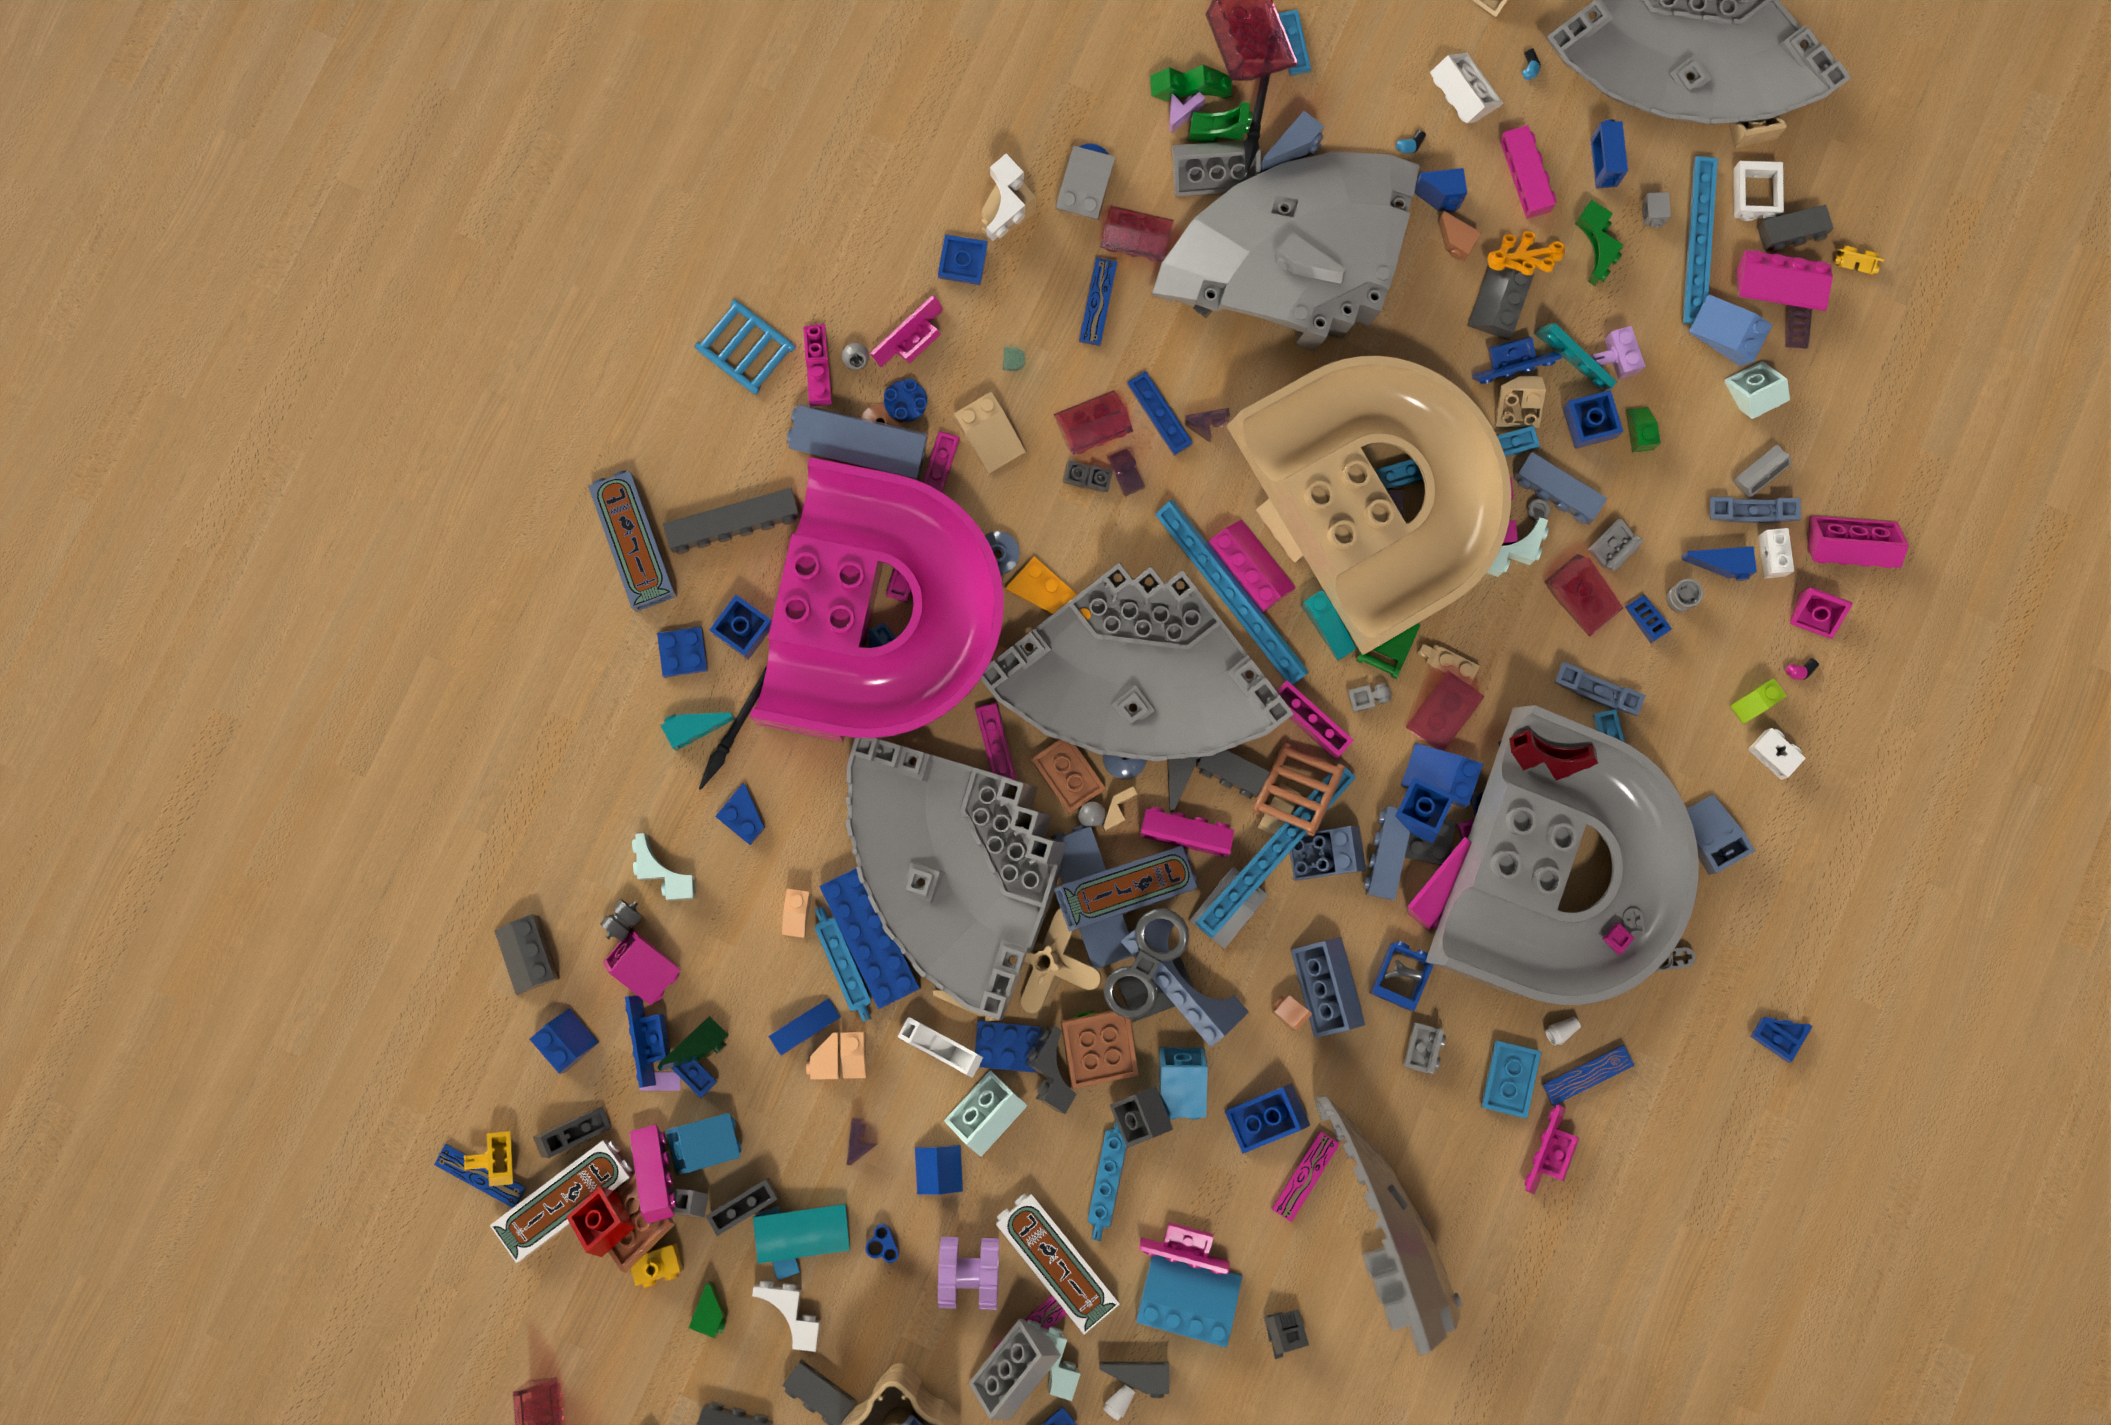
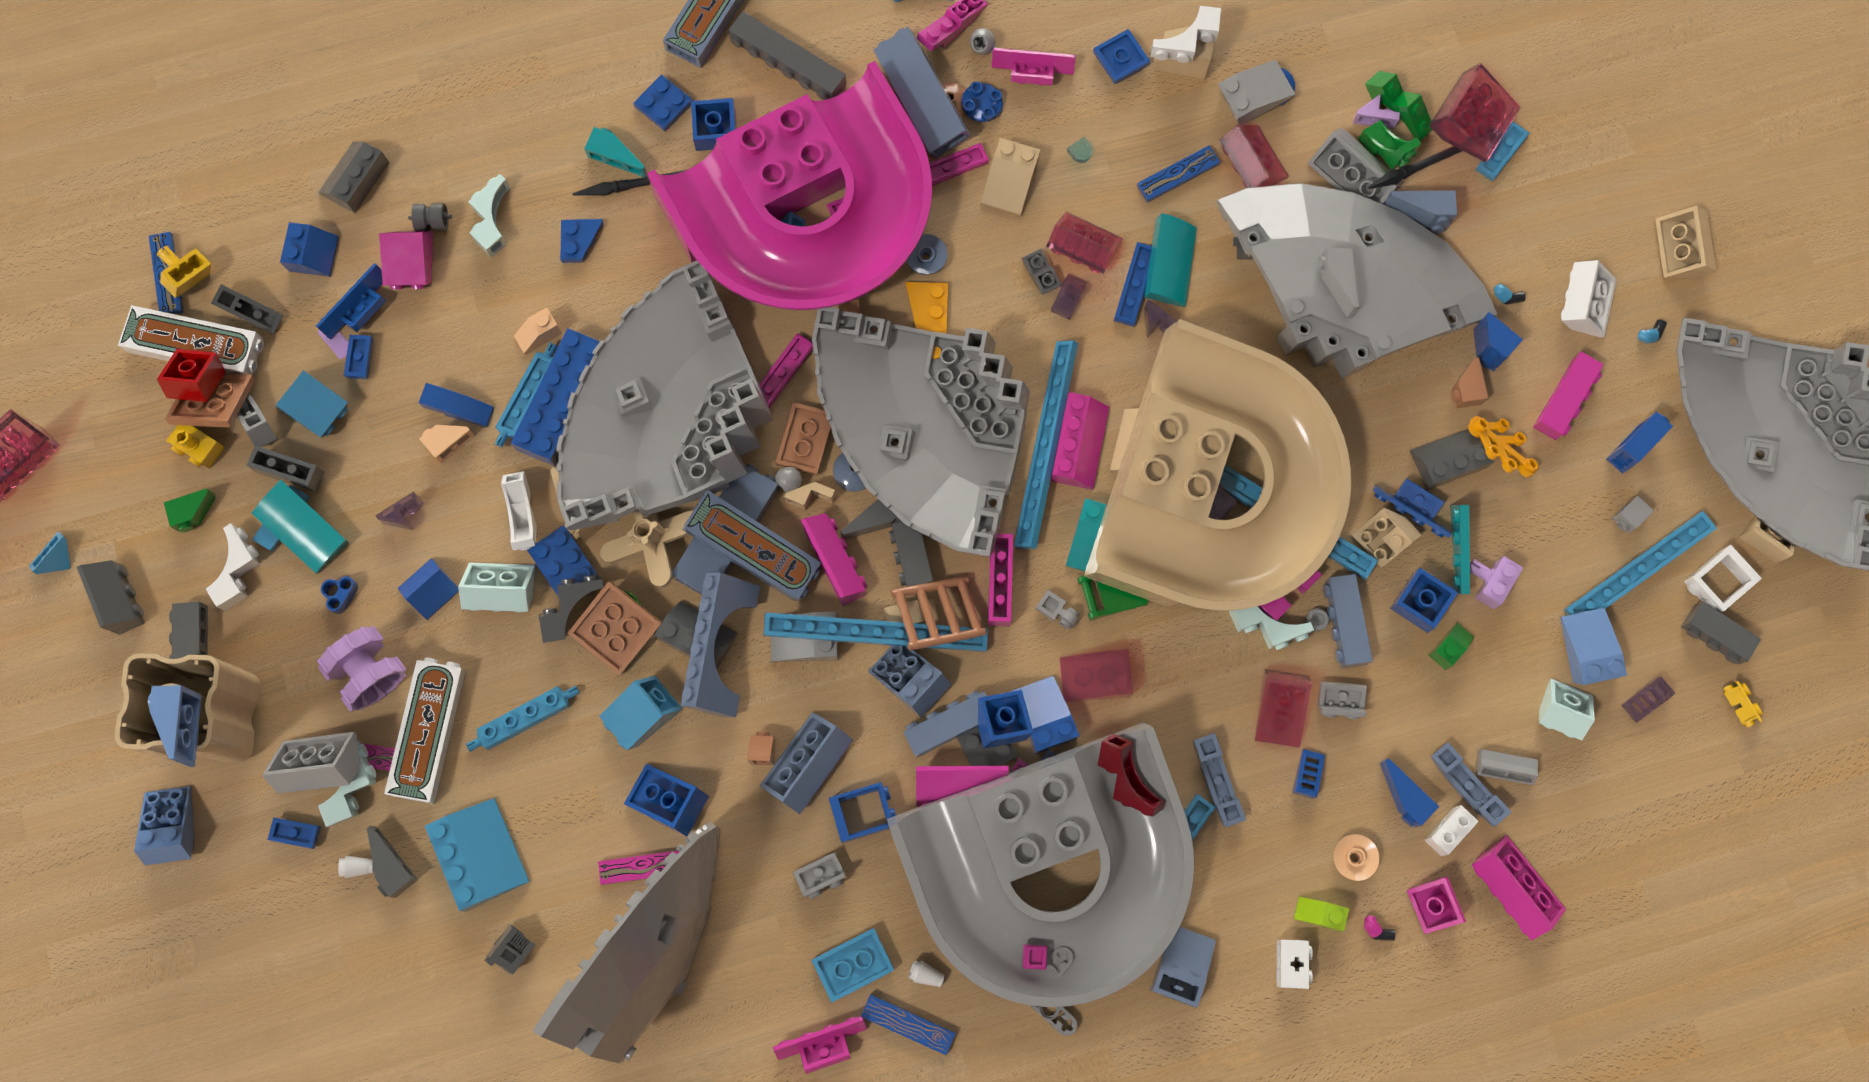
camera: 50 degrees right, 5 degrees down
(652, 1173) = (256, 383): dark pink brick -> none
(698, 1045) = (380, 340): dark green slope -> none
(853, 1054) = (464, 456): light nougat slope -> none
(1141, 1117) = (586, 700): dark grey brick -> none
(1146, 963) = (702, 602): dark grey bar -> none
(1165, 370) = (1170, 260): none -> teal slope
(1186, 1246) = (515, 818): dark pink bracket -> none
(1404, 971) = (864, 807): dark grey bar -> none
(1444, 660) = (1139, 652): tan hinge -> none
(1594, 223) = (1578, 478): green arch -> none
(1684, 595) = (1351, 785): light grey wheel -> none
(1748, 637) = (1367, 857): none -> light nougat dish
(1784, 280) = (1671, 656): dark pink slope -> none

